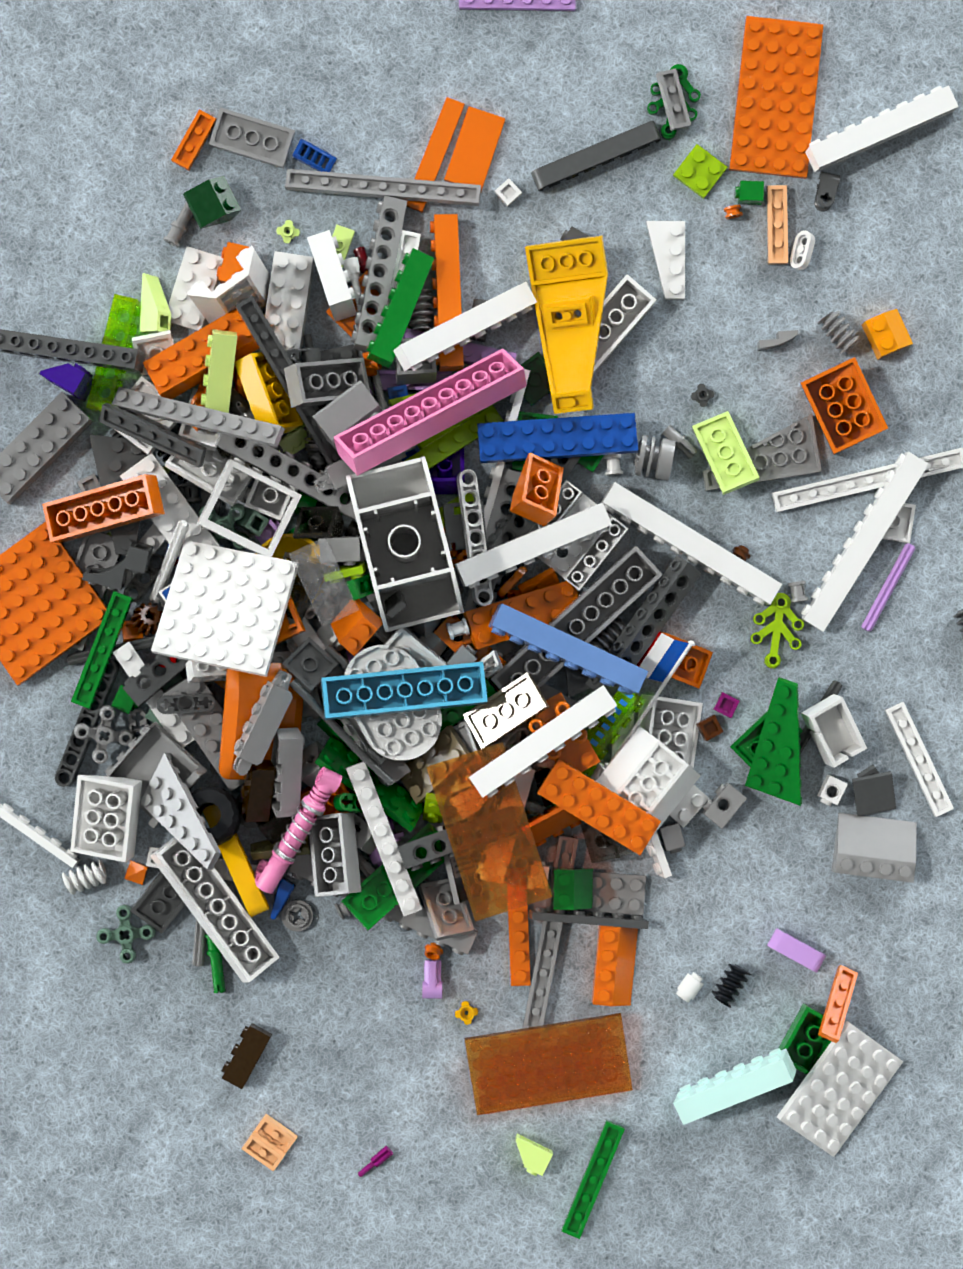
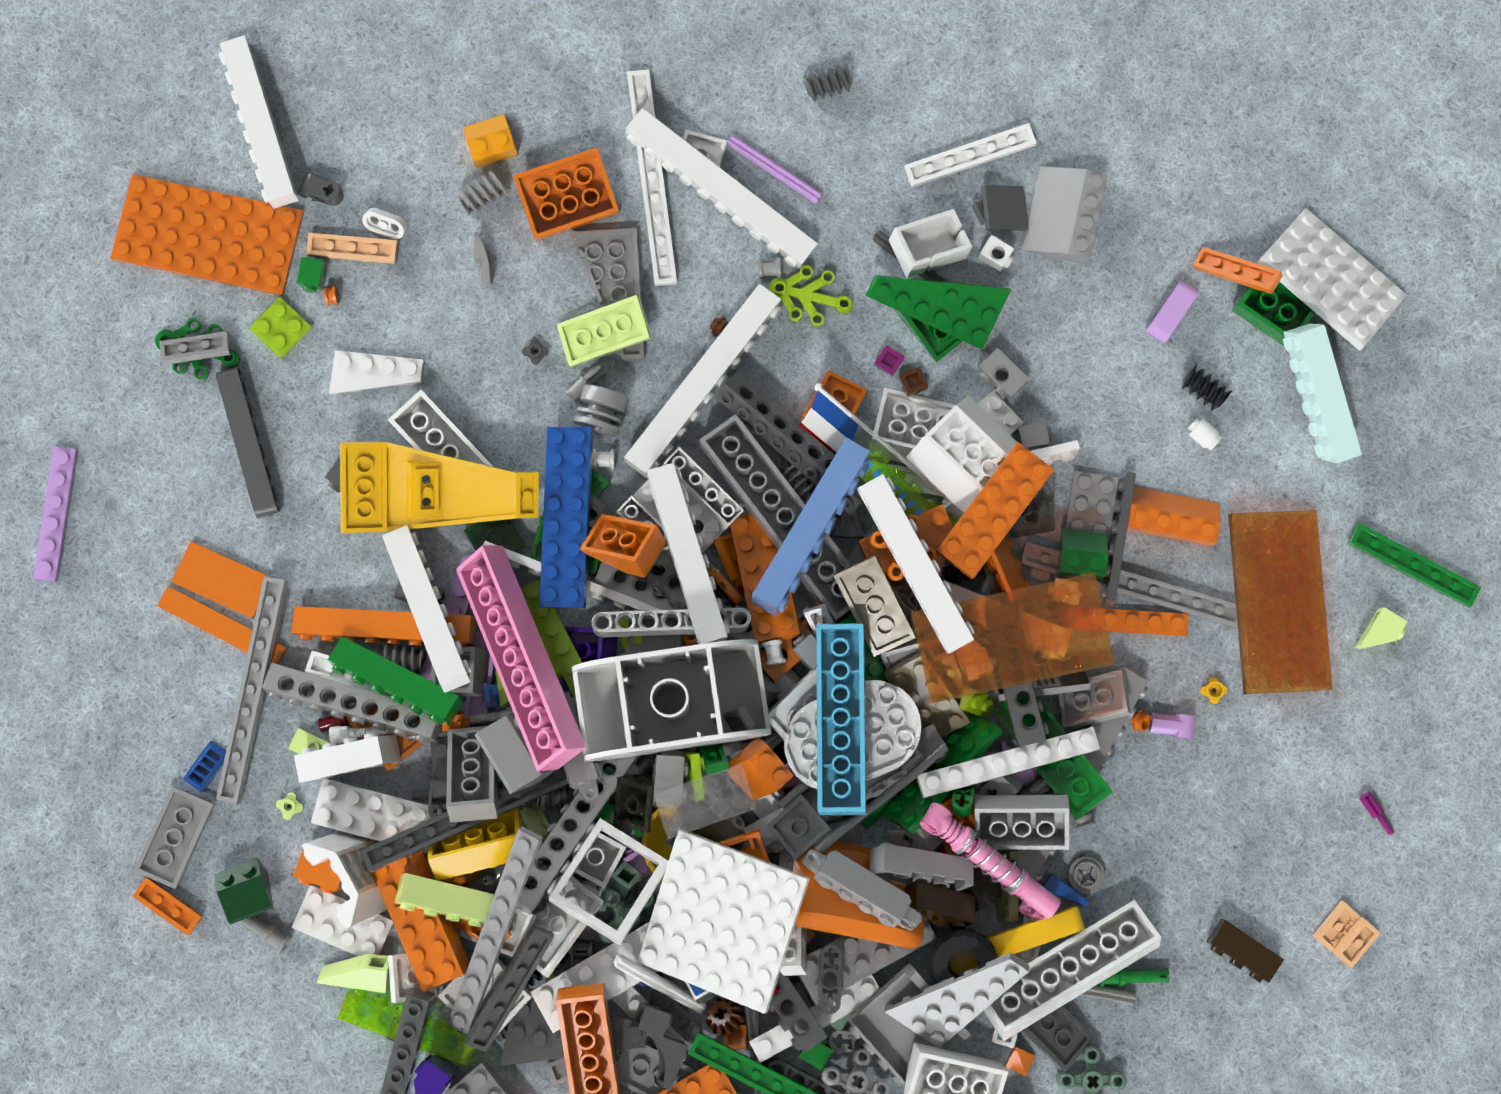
camera: 80 degrees left, 5 degrees down
(508, 192) = (276, 546): white plate -> none

